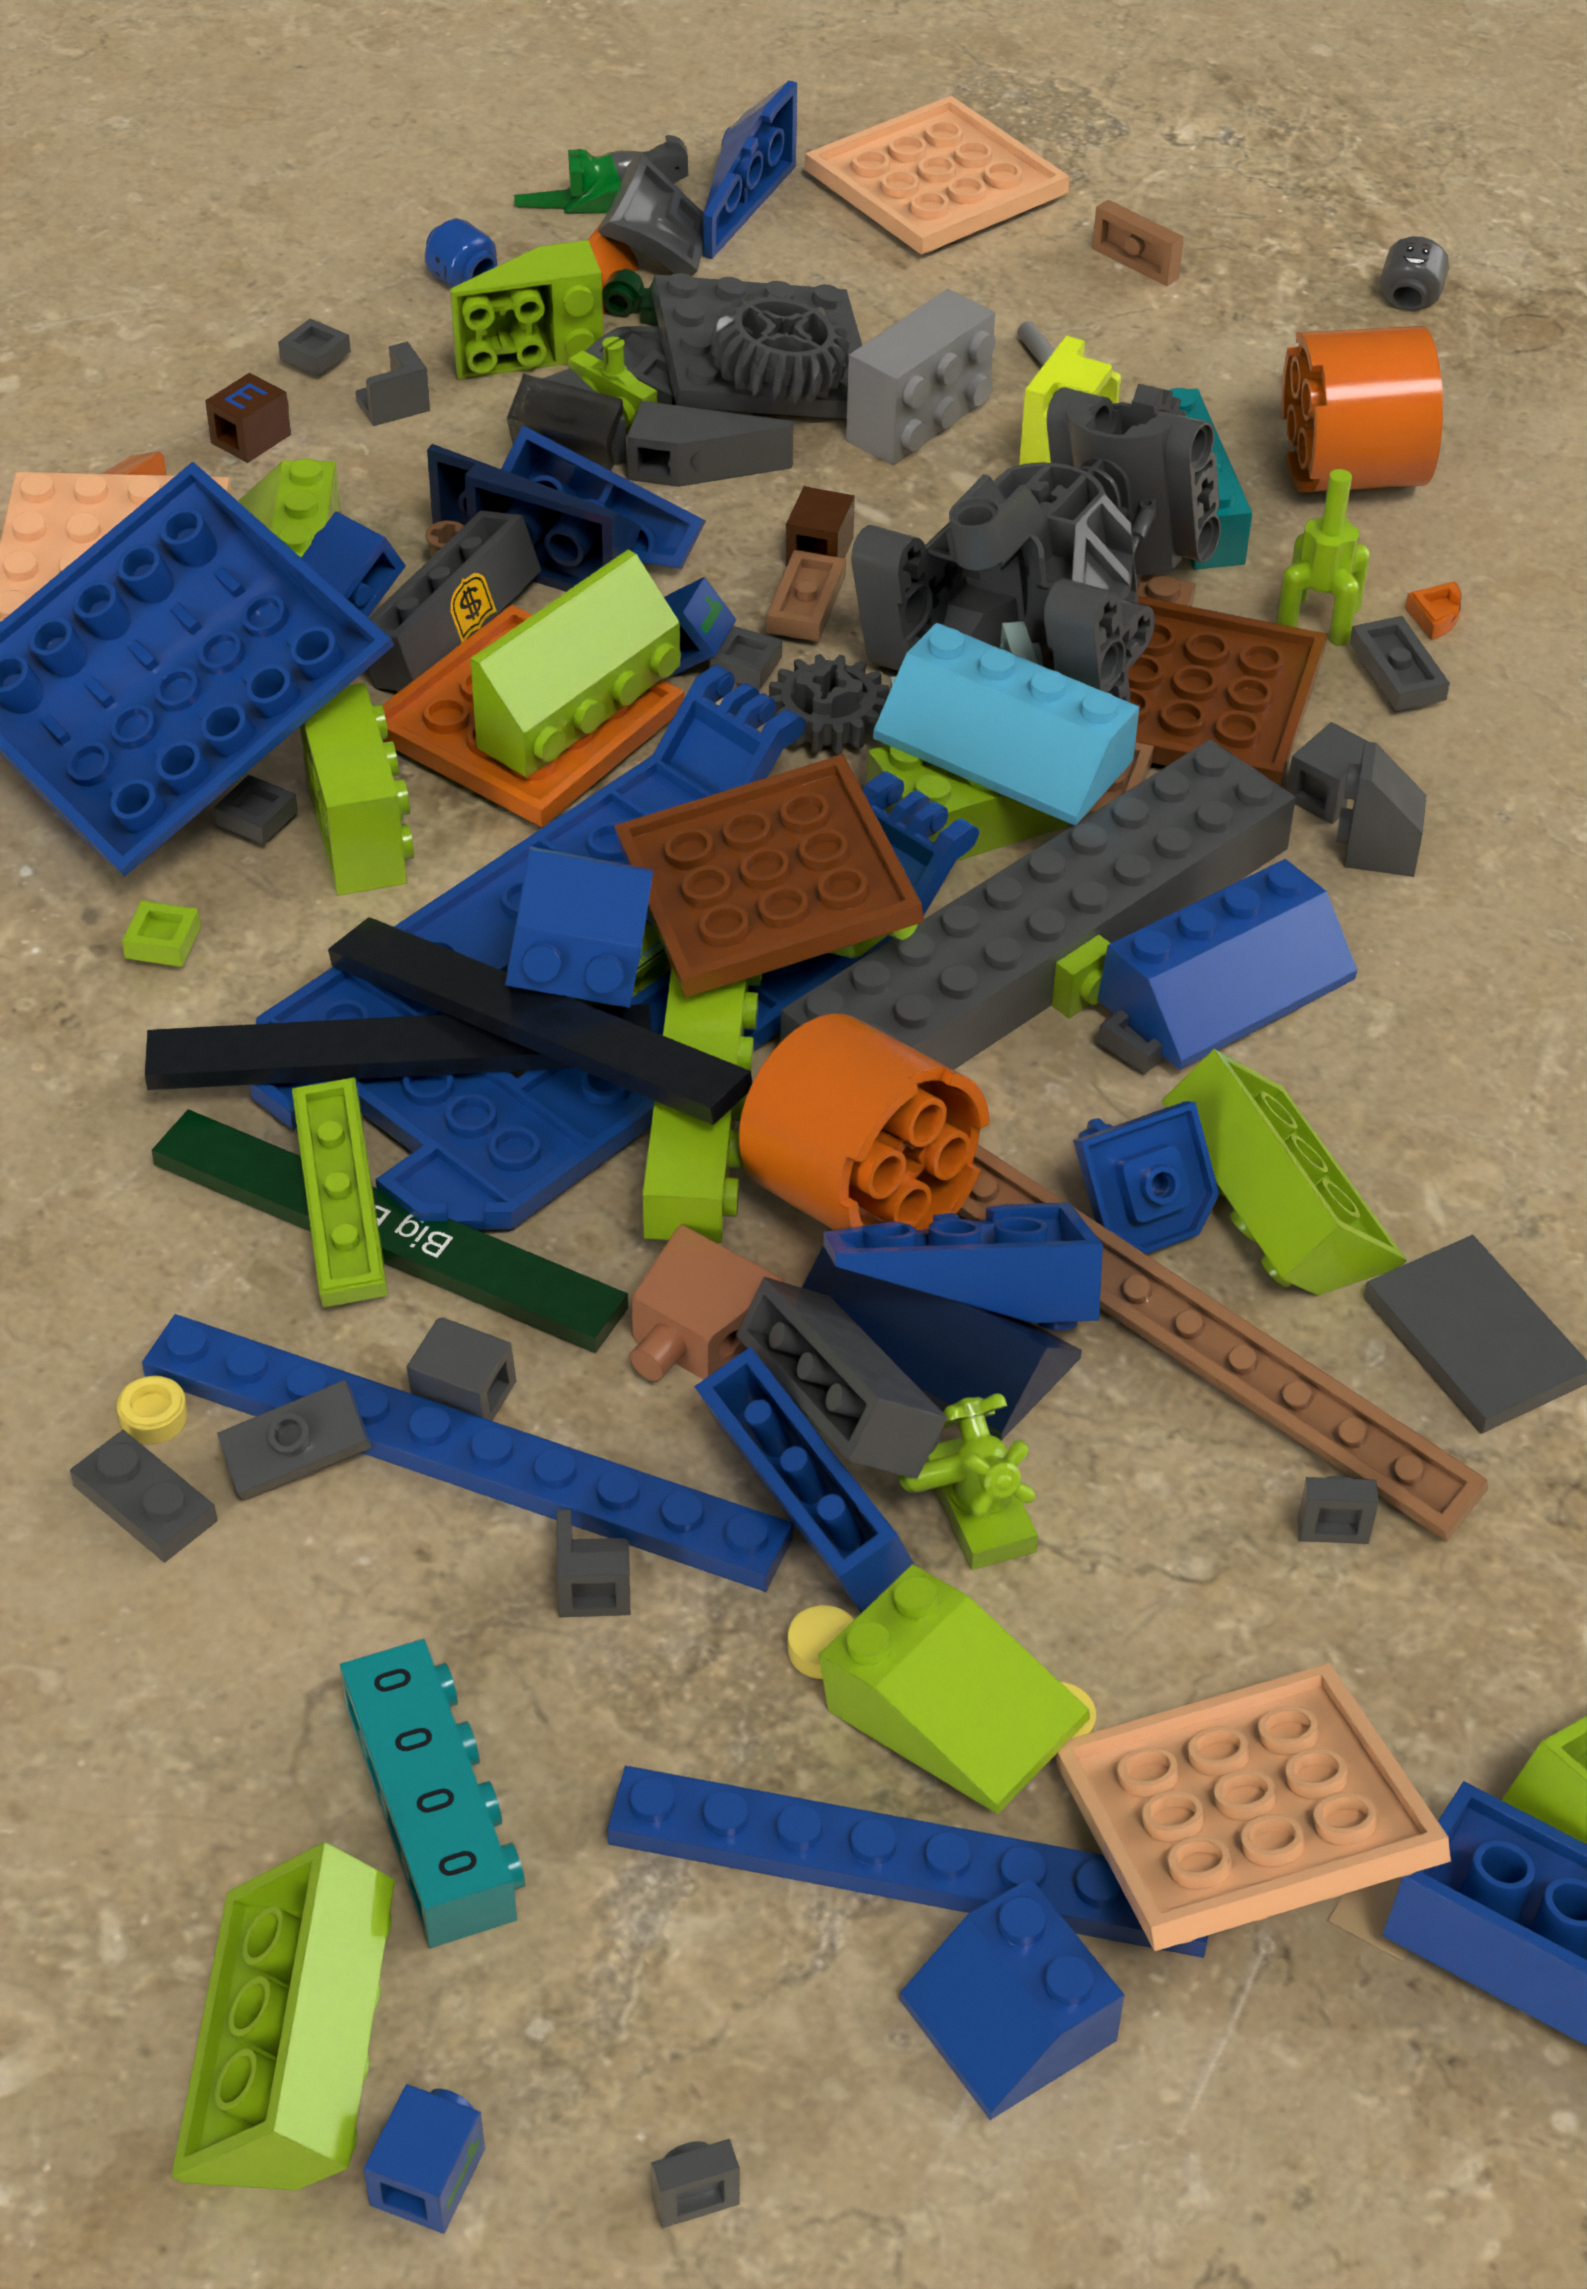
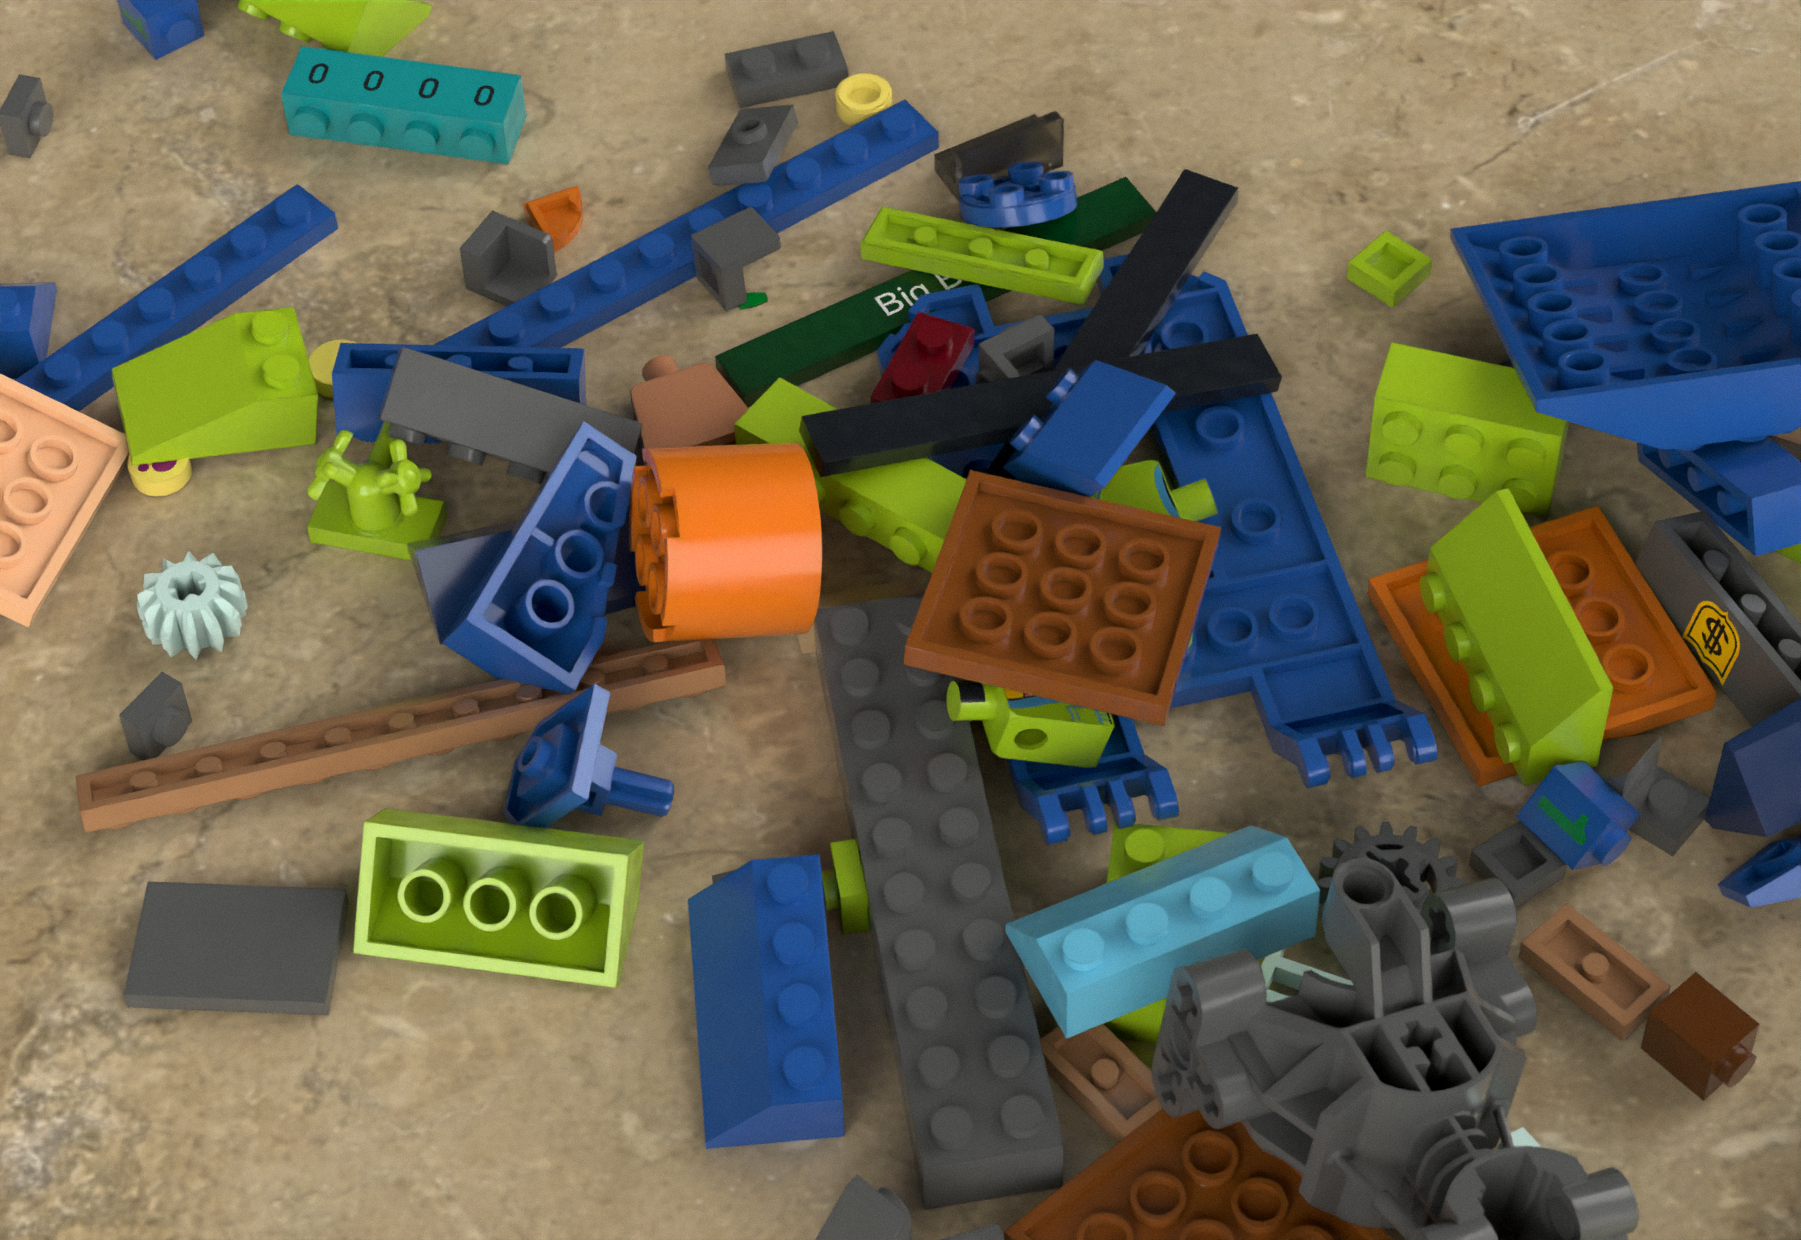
camera: 125 degrees right, 5 degrees up
(180, 1250) = (992, 153): none -> clear smoke panel
(247, 1194) = (1017, 199): none -> blue tile
(482, 1082) = (1017, 351): none -> dark grey bracket
(490, 1580) = (557, 215): none -> orange tile
(523, 1156) = (925, 359): none -> dark red plate
(1201, 1562) = (192, 605): none -> light aqua gear

